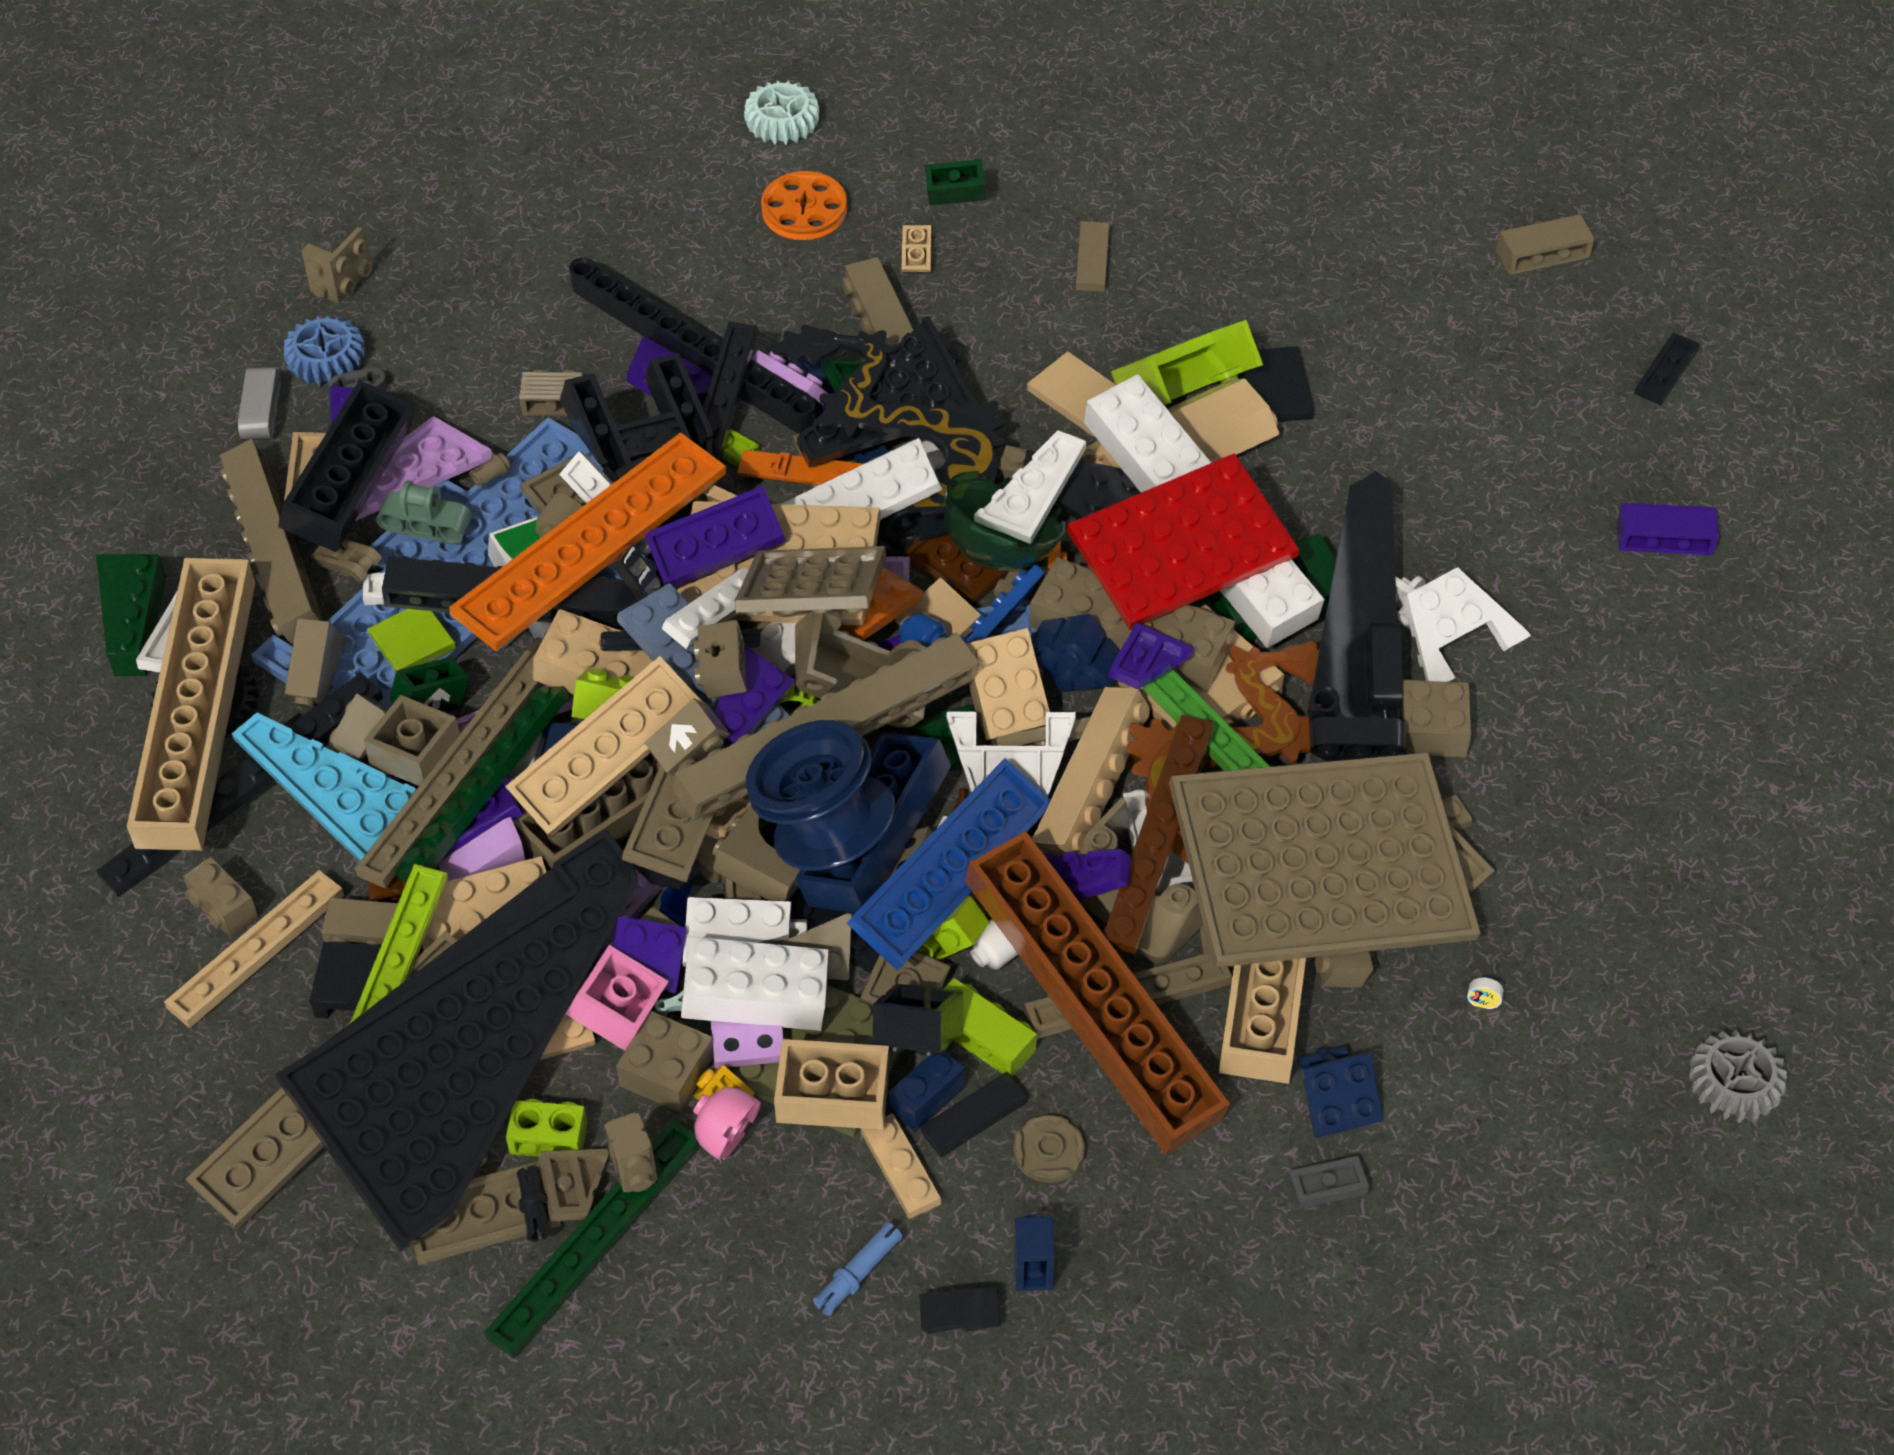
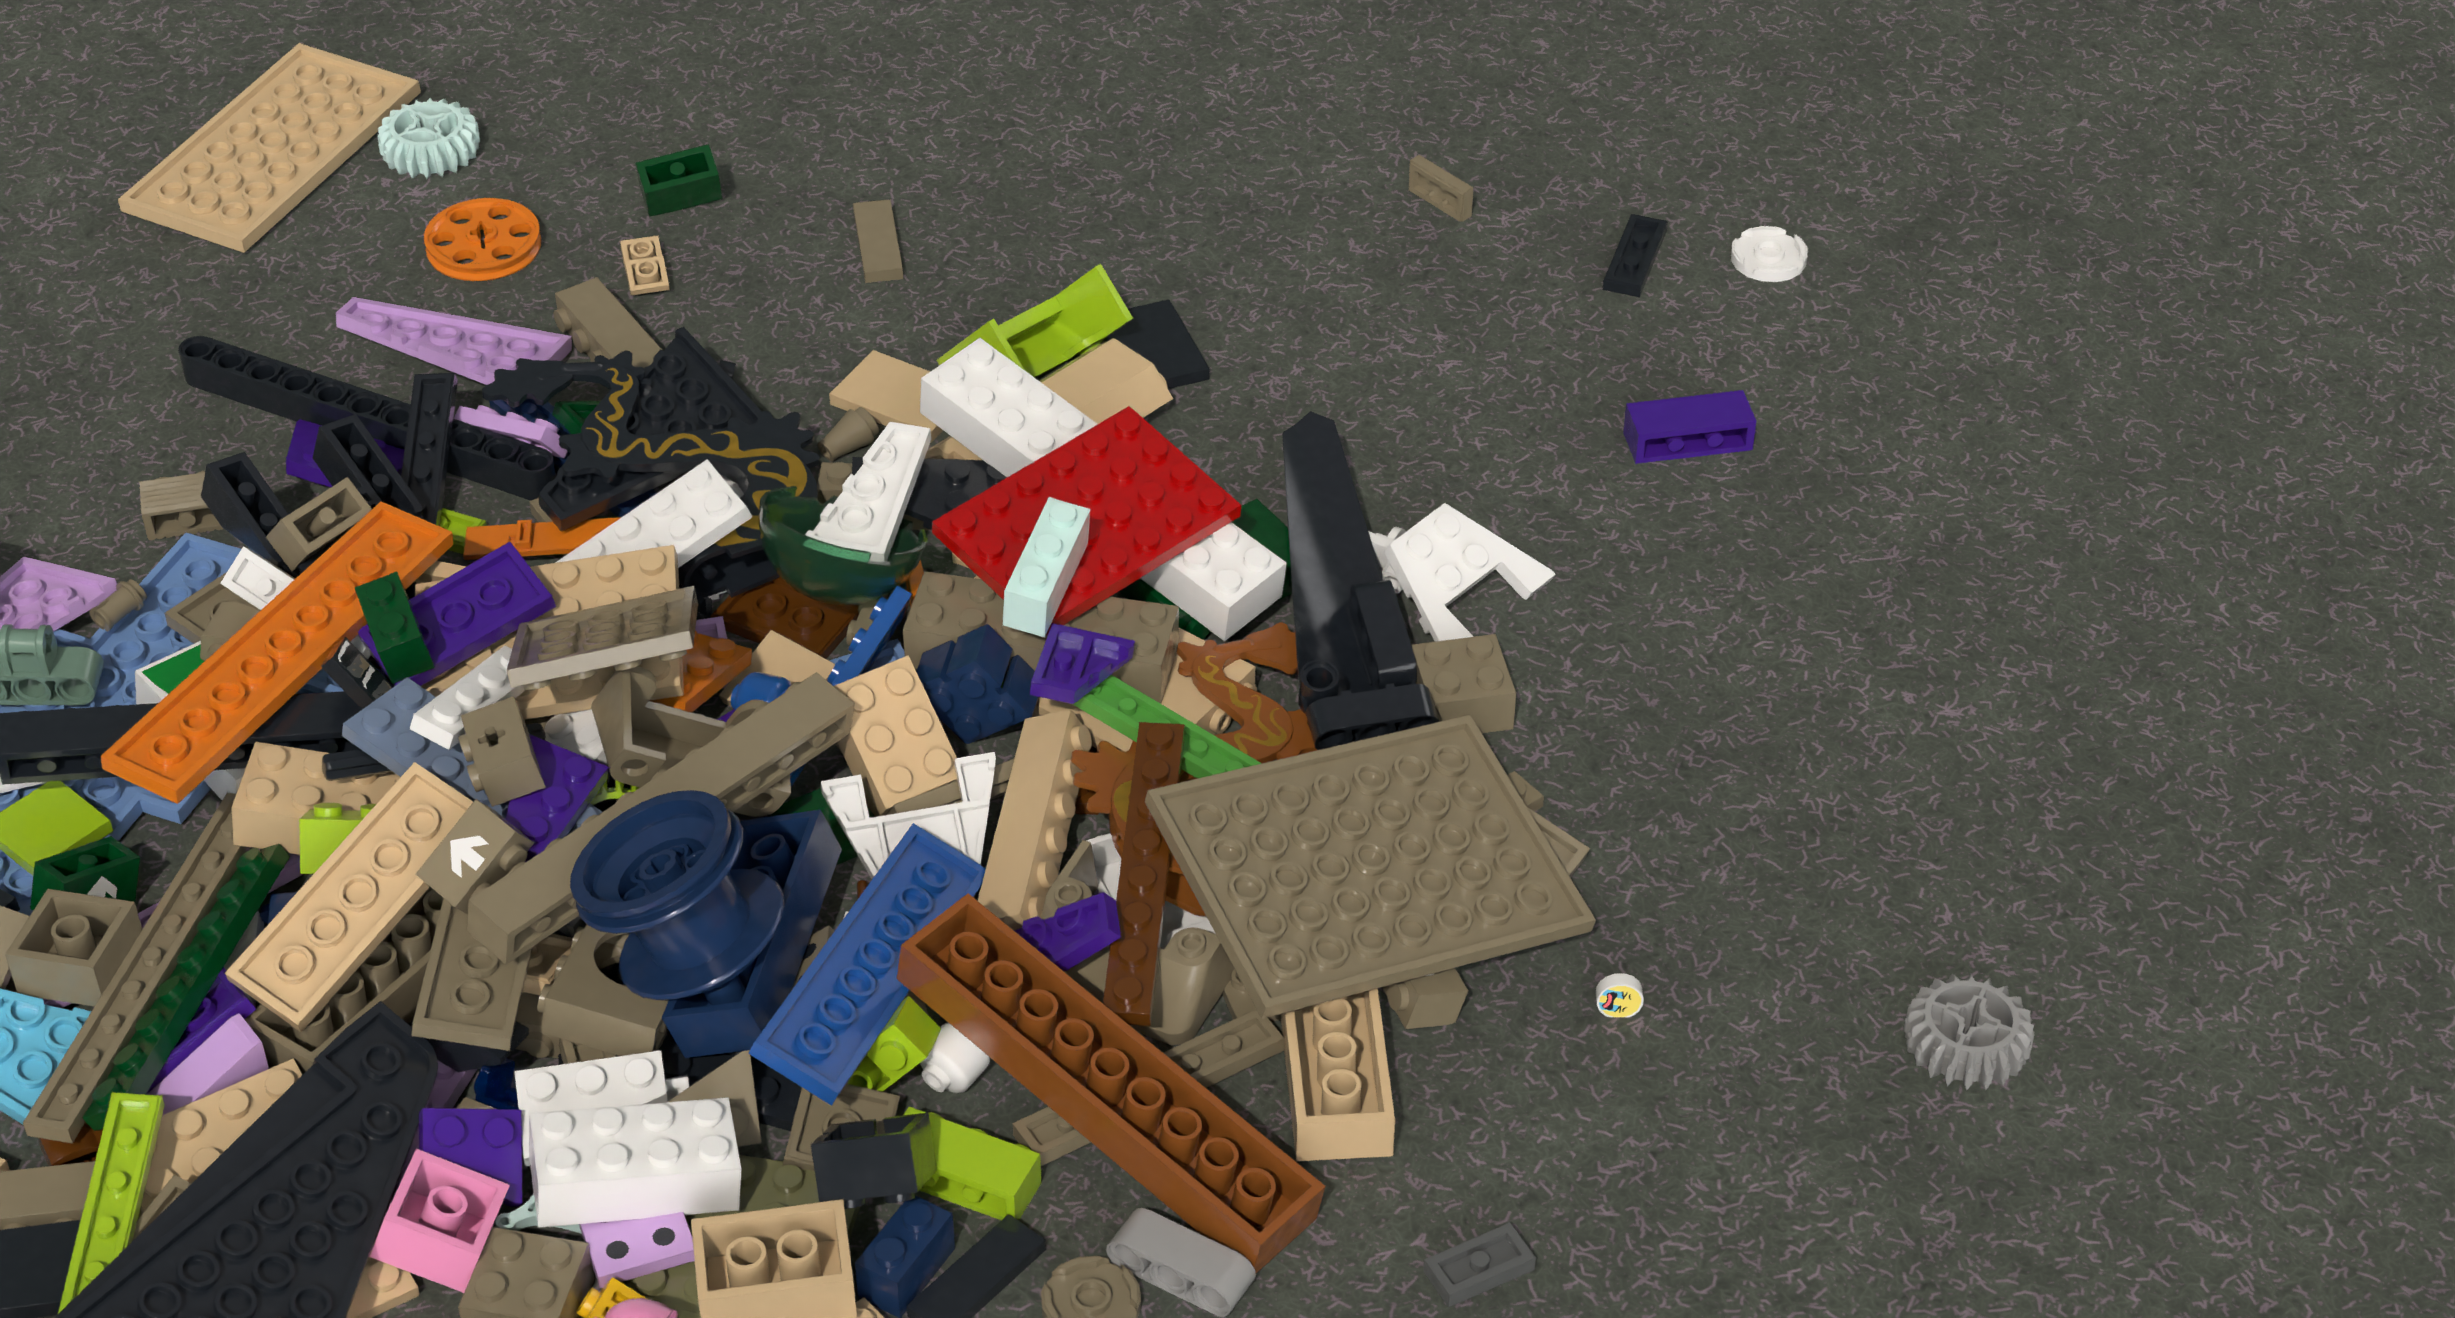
camera: 15 degrees left, 10 degrees down
(635, 441) = (318, 523): none -> dark tan brick
(667, 100) = (269, 147): none -> tan plate
(668, 540) = (394, 627): none -> dark green brick
(767, 293) = (451, 341): none -> lavender wing
(1034, 420) = (849, 434): none -> dark tan cone
(1117, 1134) = (1181, 1261): none -> light grey beam
(1140, 580) = (1046, 567): none -> light aqua brick
(1339, 1090) = (1465, 1148): dark blue plate -> none
(1529, 285) = (1440, 188): none -> dark tan plate
(1545, 244) = (1449, 139): dark tan brick -> none
(1770, 393) = (1778, 261): none -> white tile

